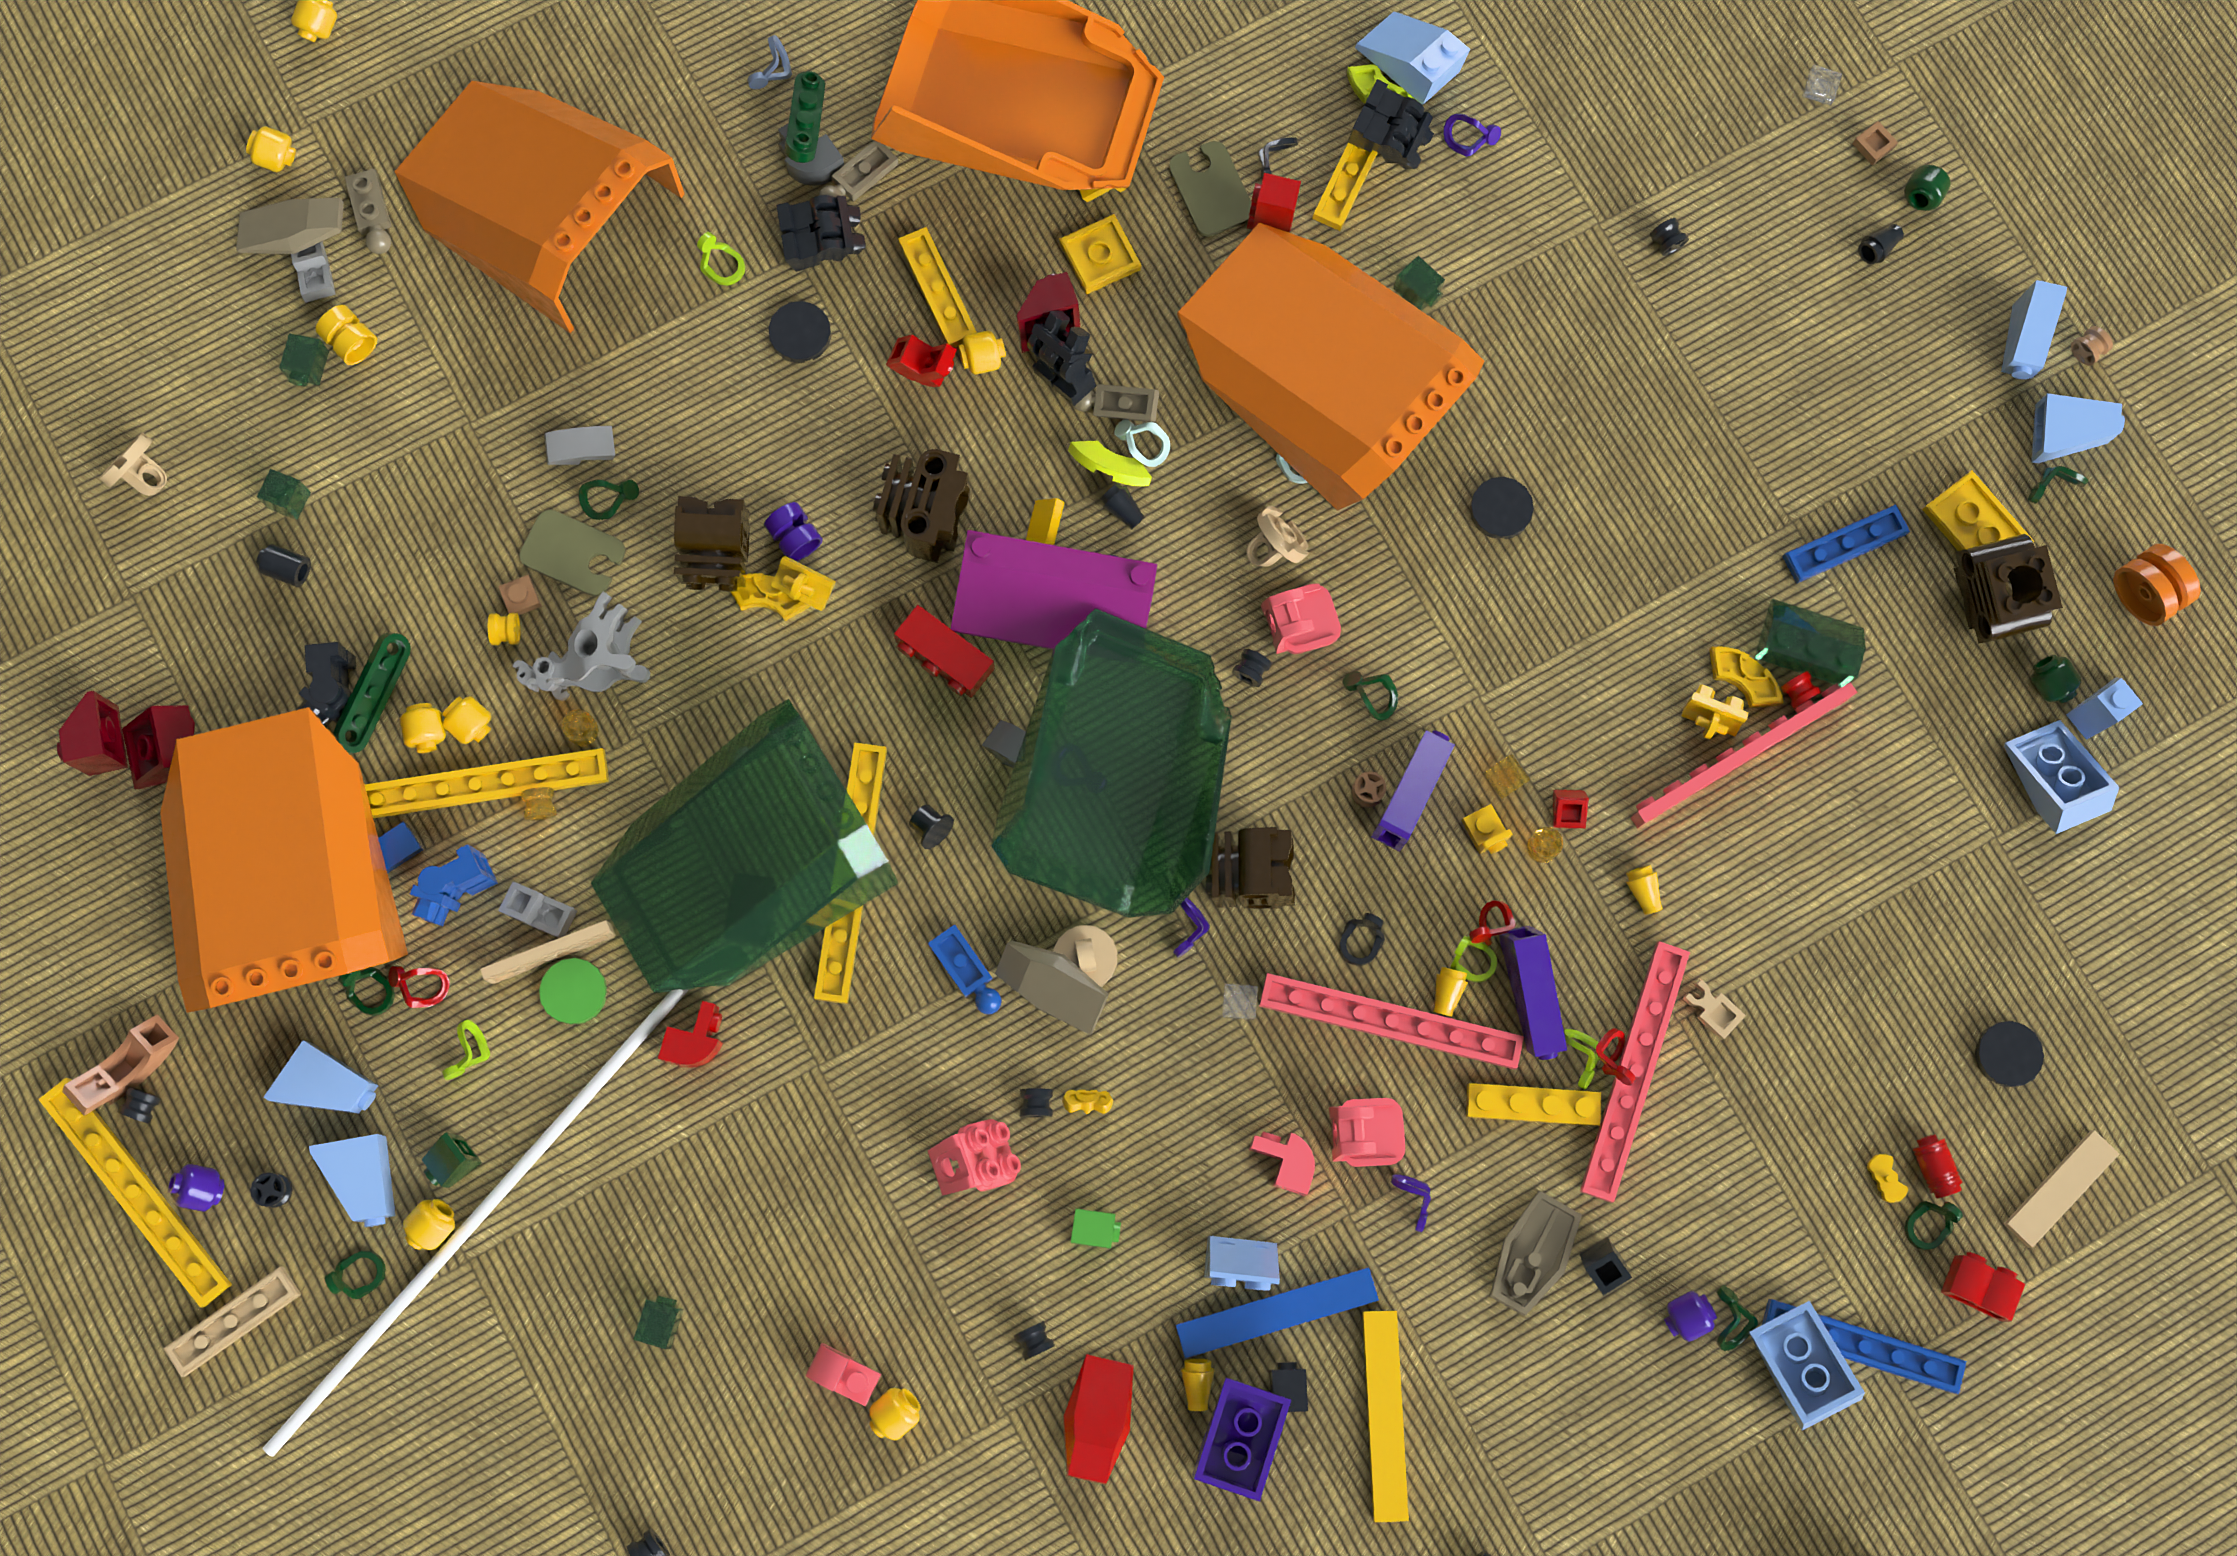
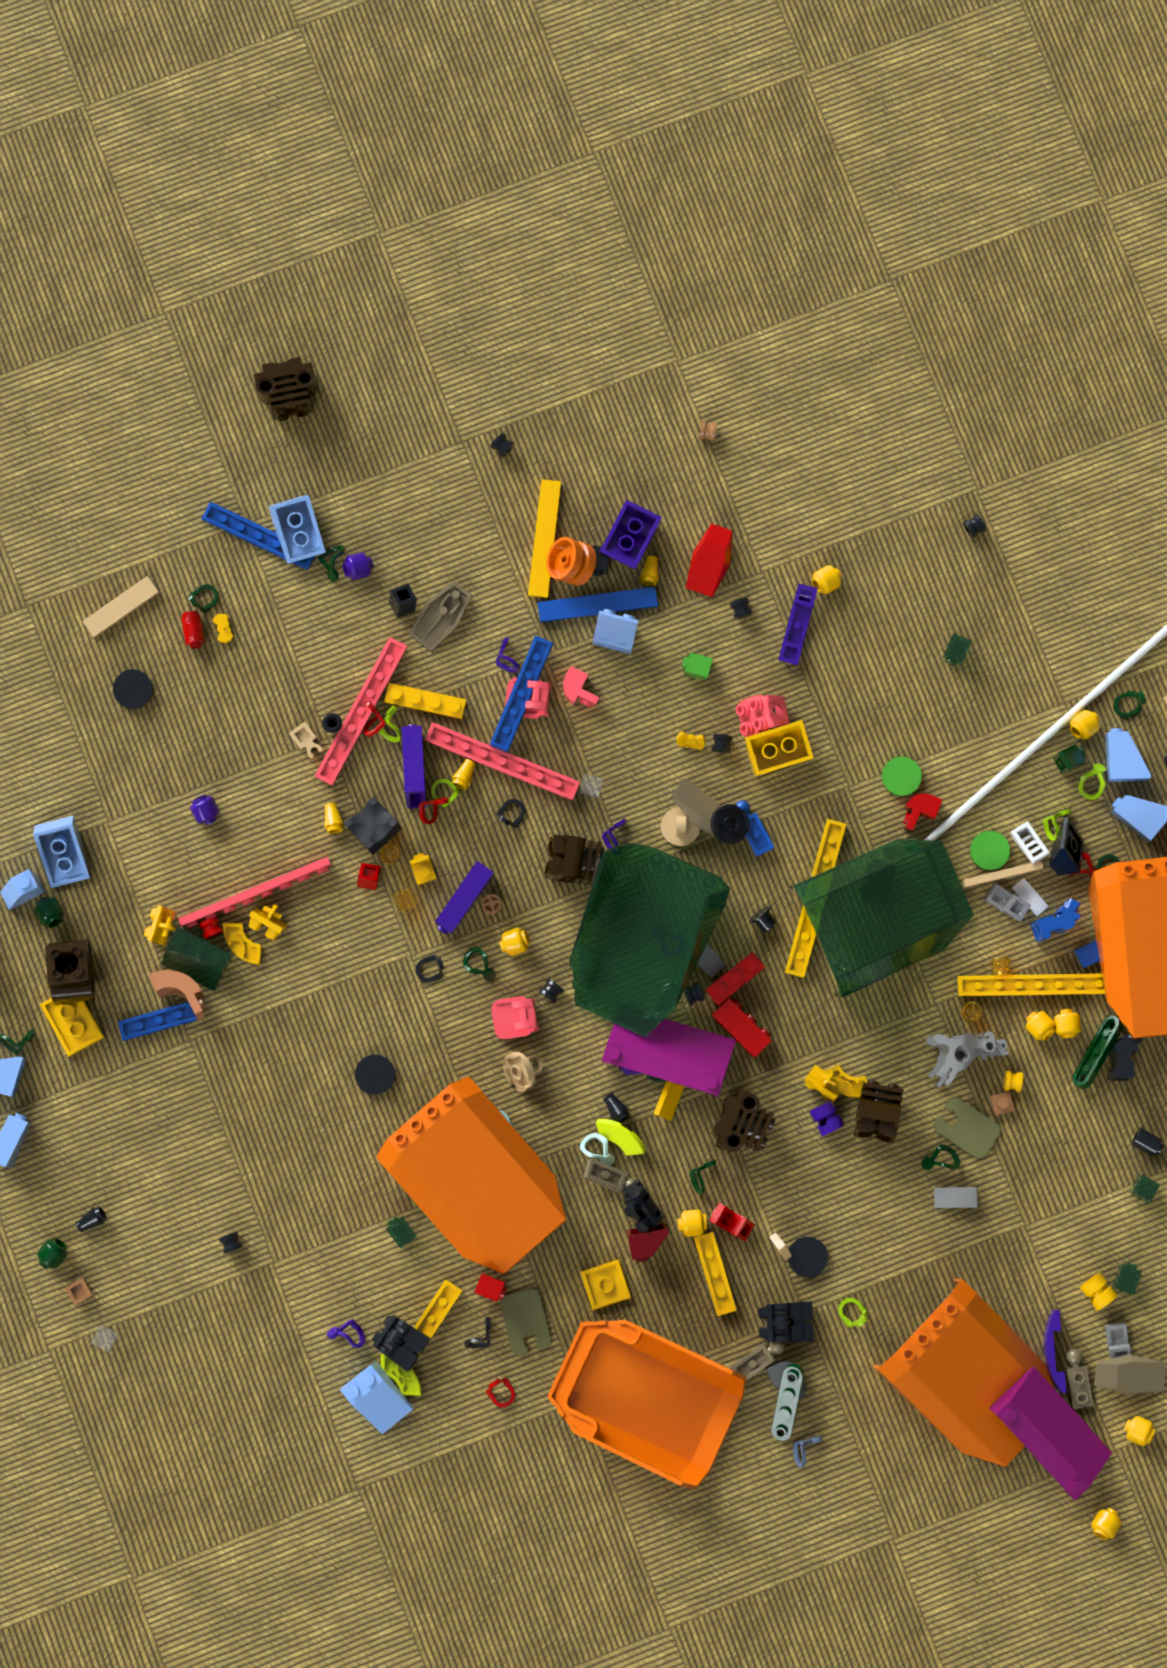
camera: 170 degrees left, 5 degrees up
(402, 121) = (1052, 1432): none -> magenta slope
(402, 1152) = (1099, 770): none -> lime piece
(415, 276) = (1053, 1324): none -> dark purple slope
(442, 1004) = (1067, 850): none -> black slope
(500, 927) = (1028, 894): none -> white sticker
(513, 1036) = (1026, 828): none -> white slope
(731, 1093) = (901, 776): none -> bright green tile
(842, 335) = (780, 1246): none -> tan tile
(843, 1374) = (856, 605): coral brick -> none
(934, 1327) = (797, 624): none -> dark purple slope
(940, 1102) = (778, 748): none -> yellow slope
(964, 724) = (734, 979): none -> red brick
(969, 443) = (697, 1170): none -> dark green piece
(1005, 966) = (729, 824): none -> black tile
(1025, 693) = (693, 994): none -> black wheel
(1244, 87) = (495, 1383): none -> red piece
(1321, 735) = (515, 941): none -> yellow head
(1336, 1376) = (571, 561): none -> orange wheel
(1388, 1104) = (520, 694): none -> blue tile
(1437, 683) = (440, 967): none -> black piece
(1580, 883) = (373, 826): none -> black brick
(1686, 1035) = (332, 718): none -> black cone
(1821, 593) = (178, 983): none -> nougat arch
(1852, 873) = (204, 809): none -> dark purple head
(1879, 681) = (161, 925): none -> yellow hips
(1982, 1287) = (181, 557): red brick -> none

